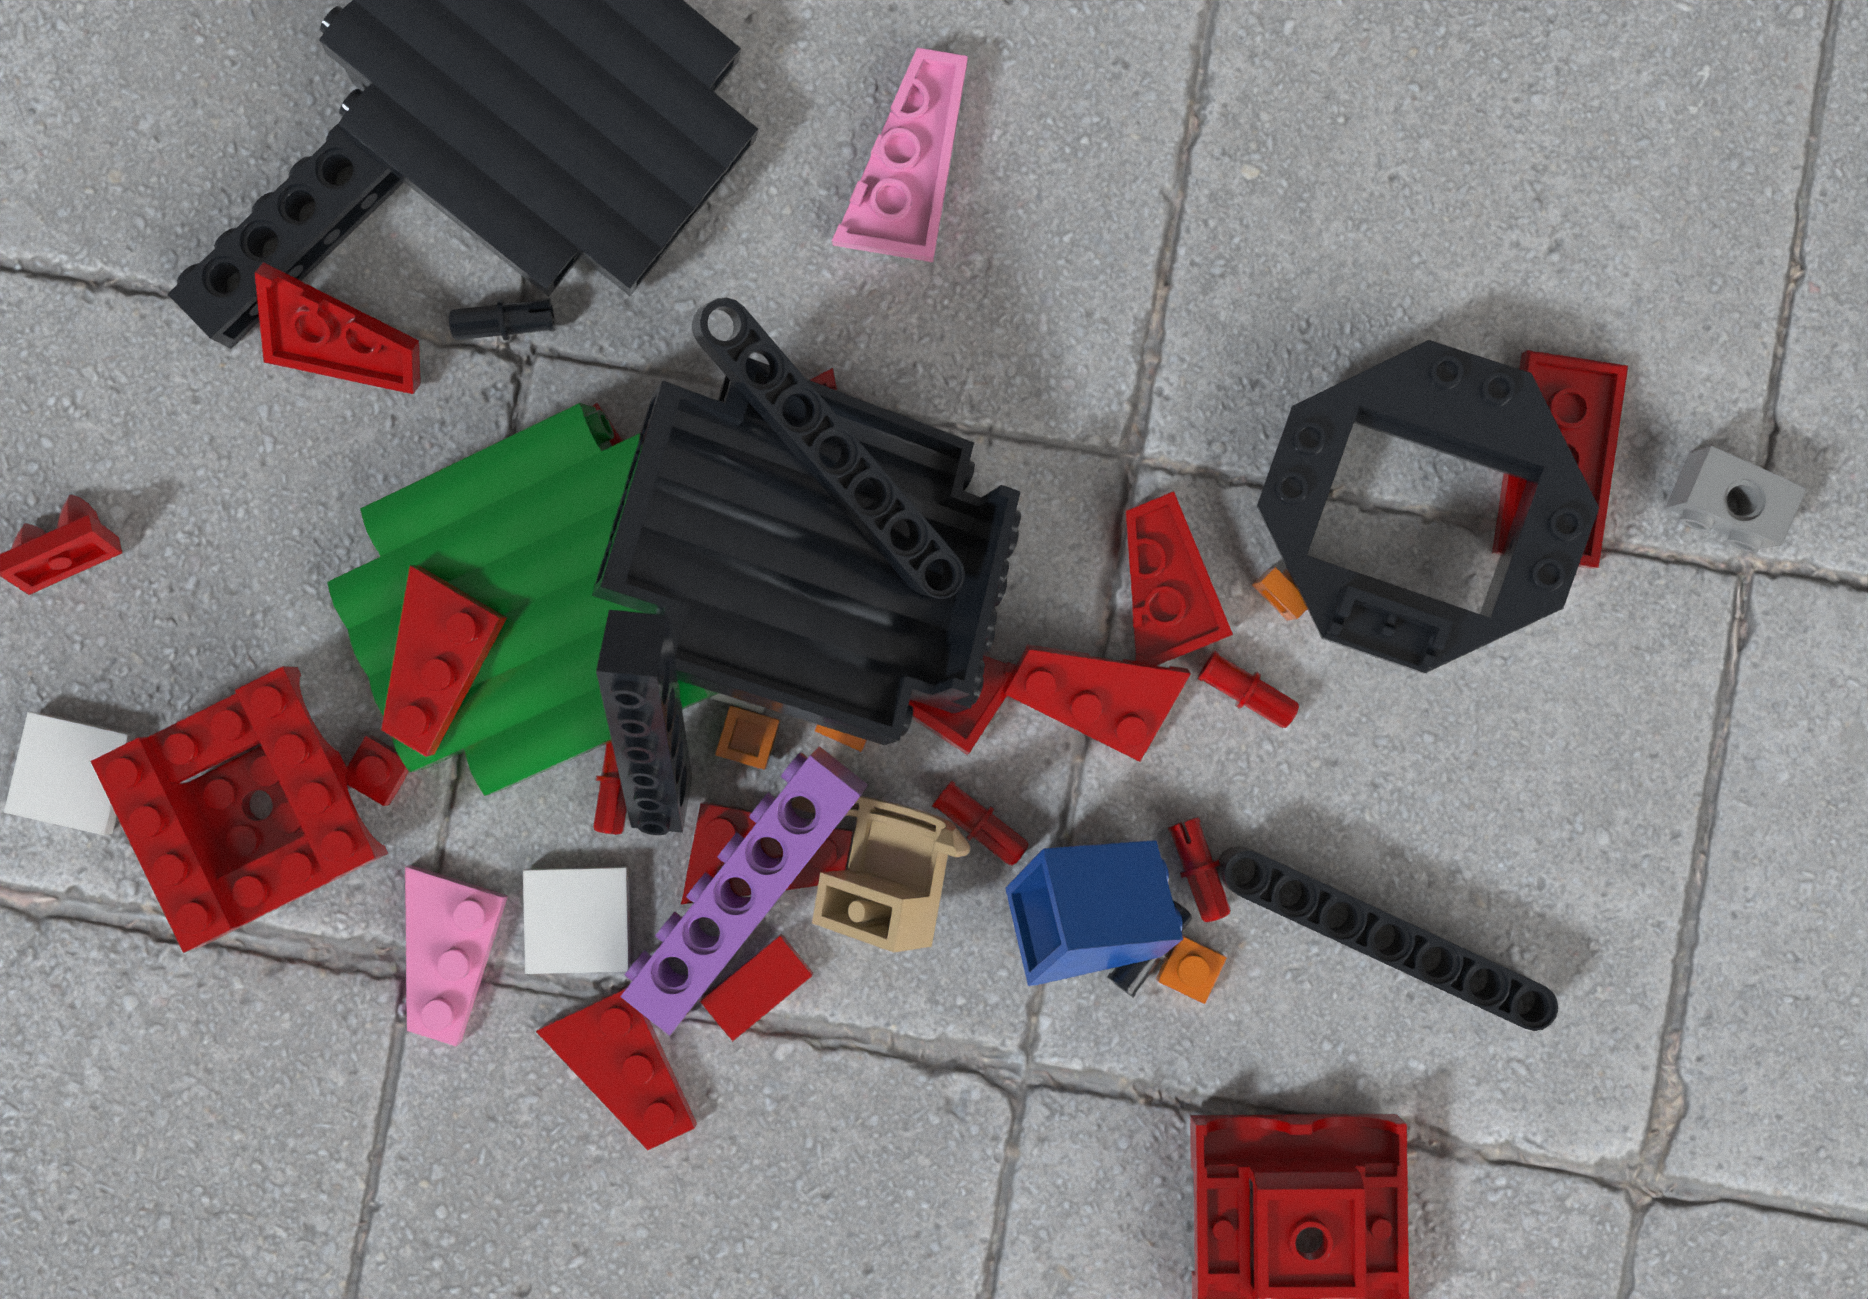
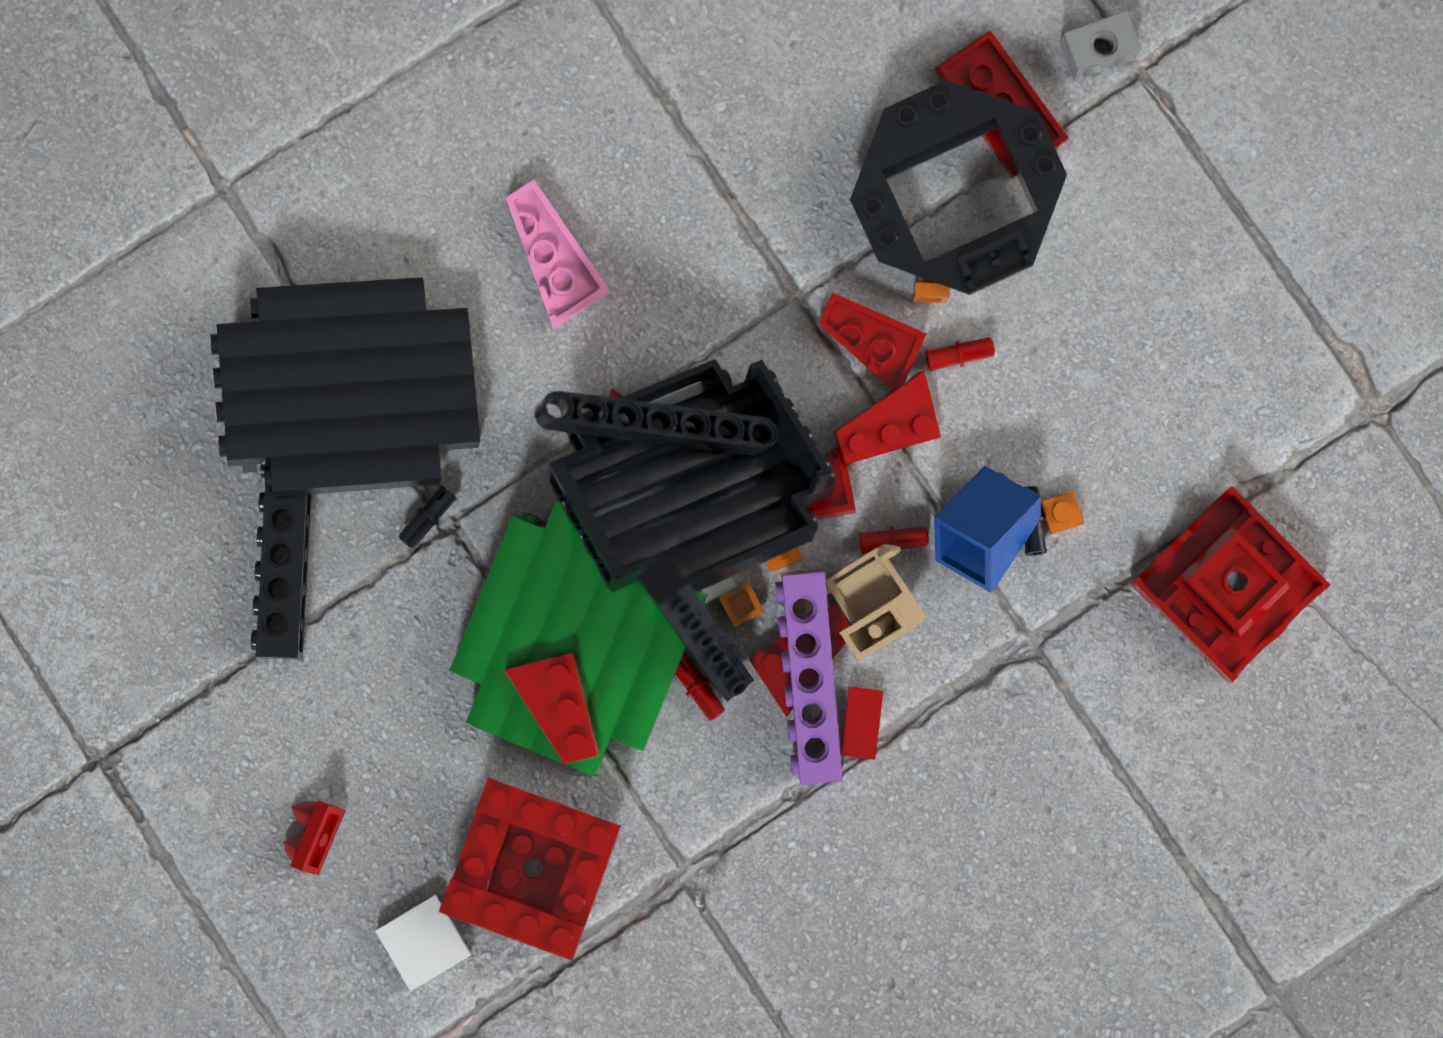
camera: 45 degrees left, 5 degrees down
(330, 338) = (353, 603): red wing -> none
(376, 771) = (575, 793): red plate -> none
(446, 950) = (693, 850): bright pink wing -> none
(577, 920) = (743, 774): white tile -> none
(624, 1066) = (833, 823): red wing -> none
(1200, 870) = (1020, 461): red axle -> none
(1405, 952) = (1150, 397): black beam -> none

